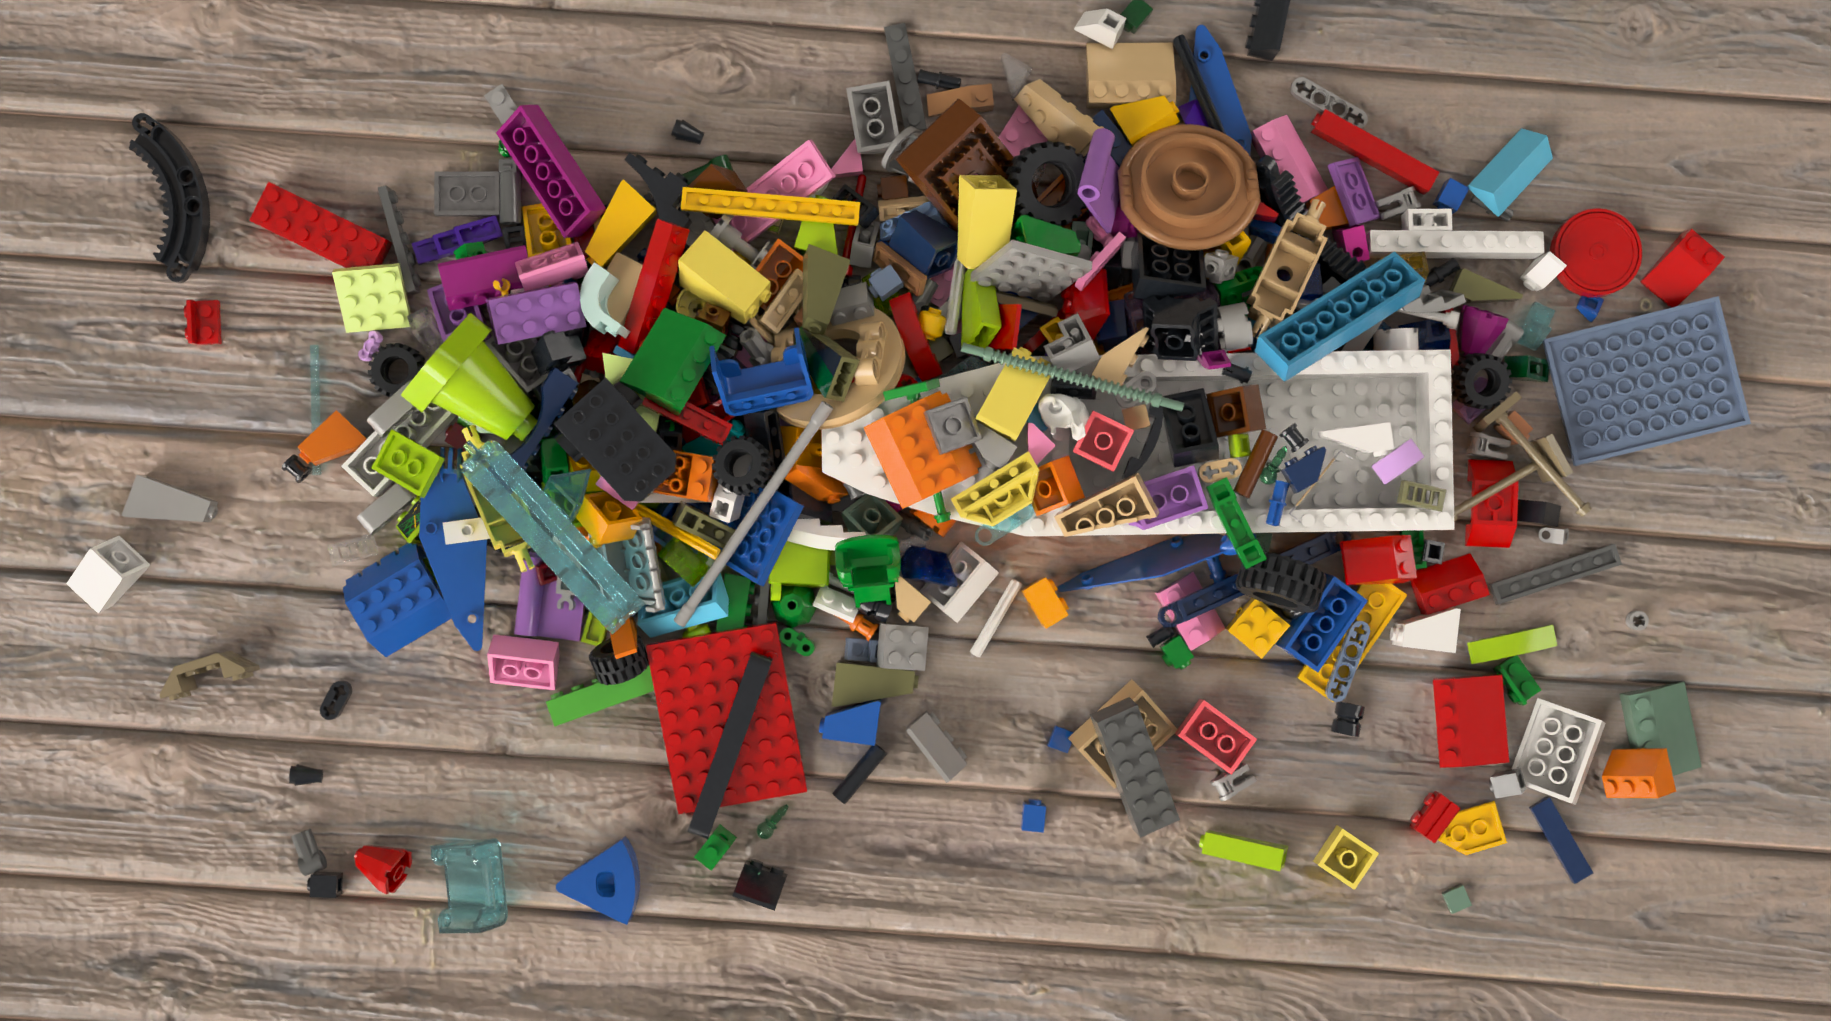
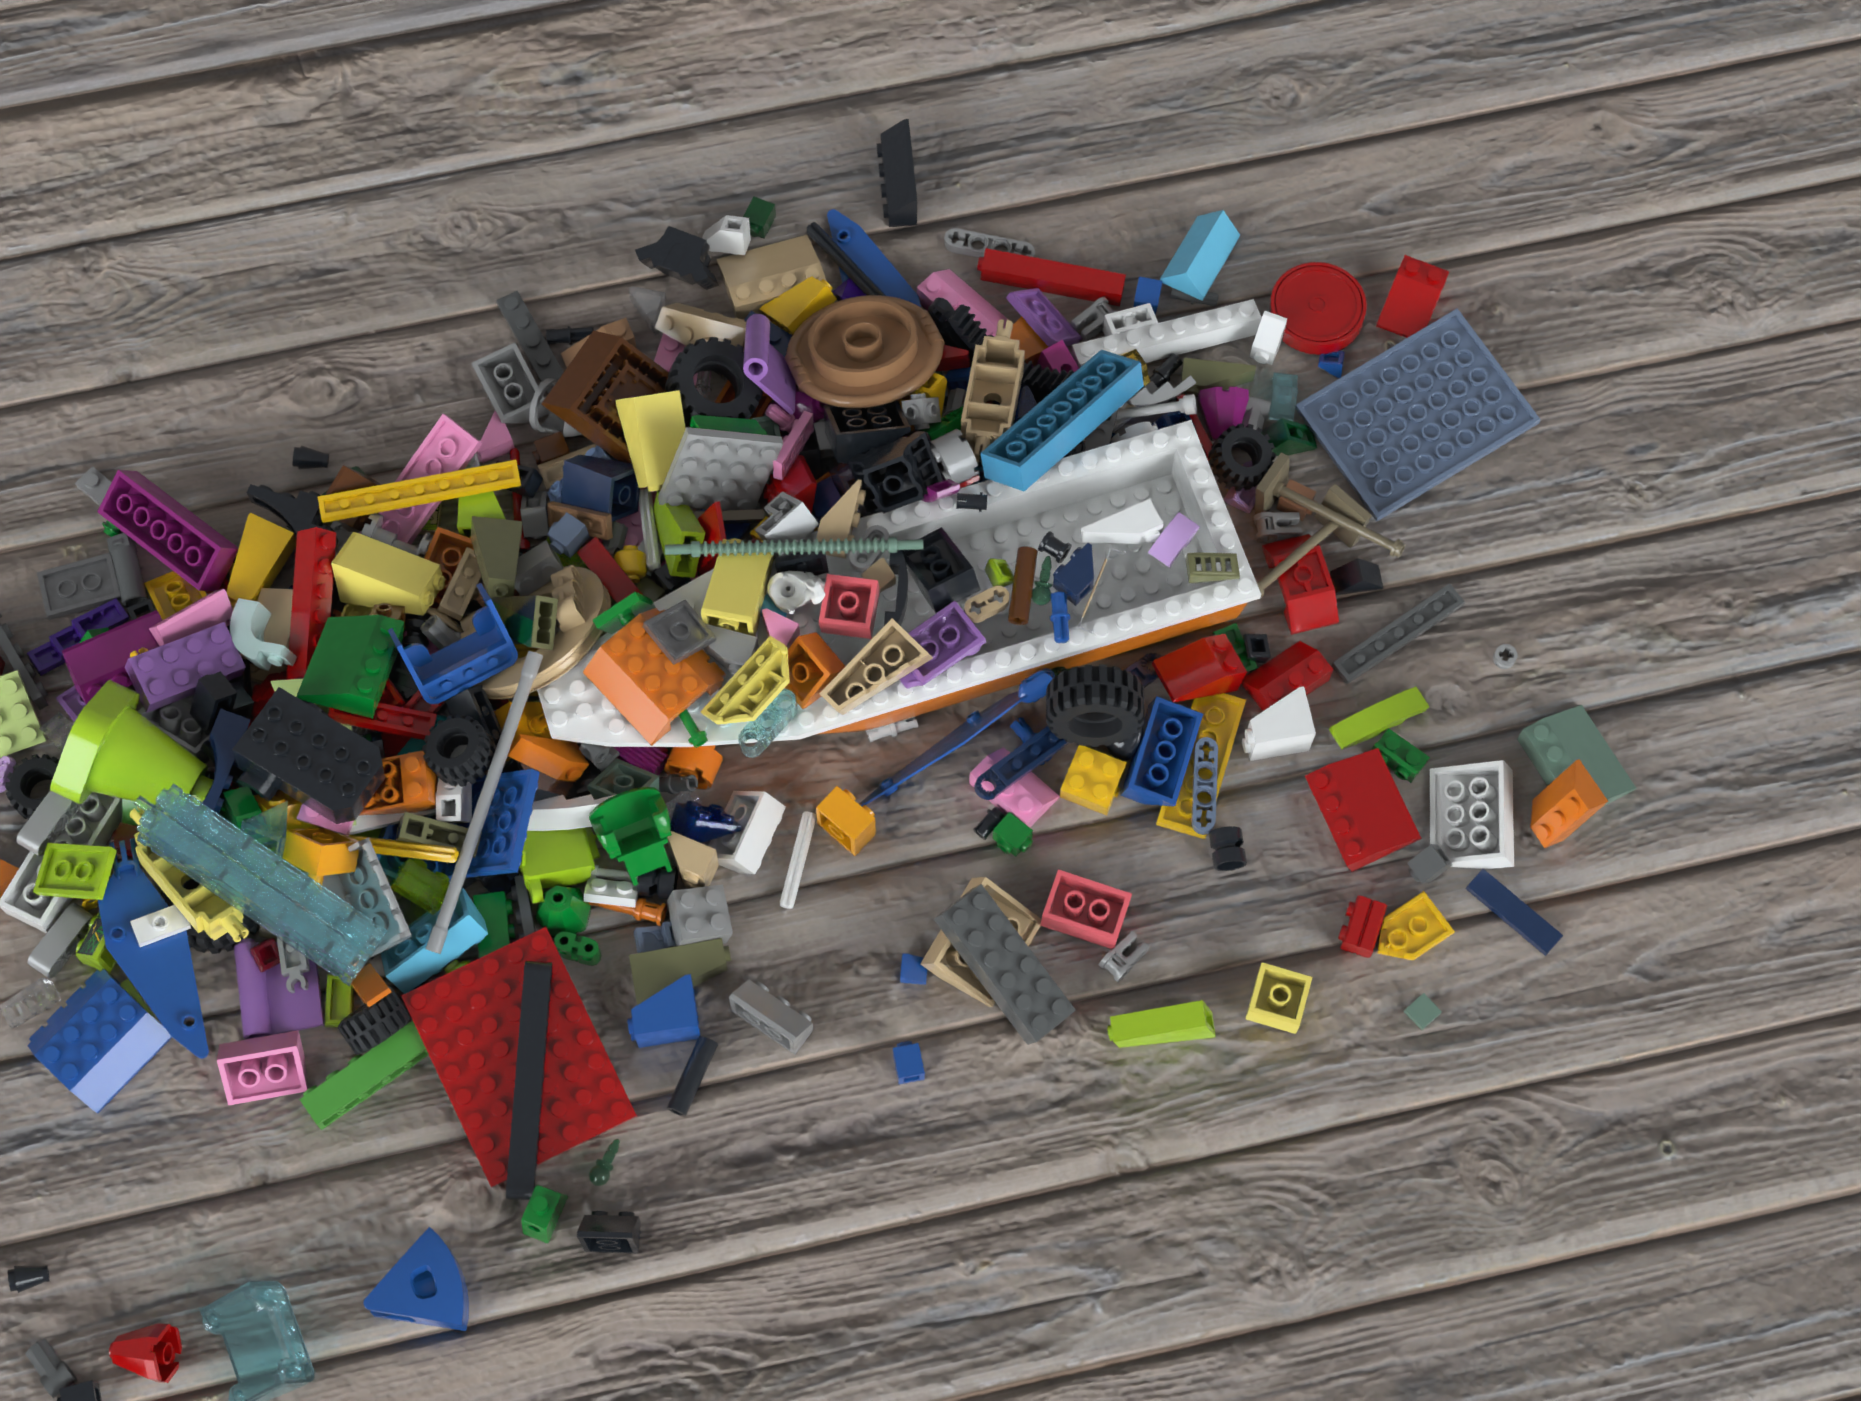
camera: 15 degrees left, 20 degrees down
(331, 698) = (52, 1181): black beam -> none
(1055, 39) = (680, 257): none -> black slope
(1235, 523) = (1019, 650): green slope -> none
(1236, 410) = (984, 535): reddish brown slope -> none
(1557, 536) = (1385, 595): light grey piece -> none

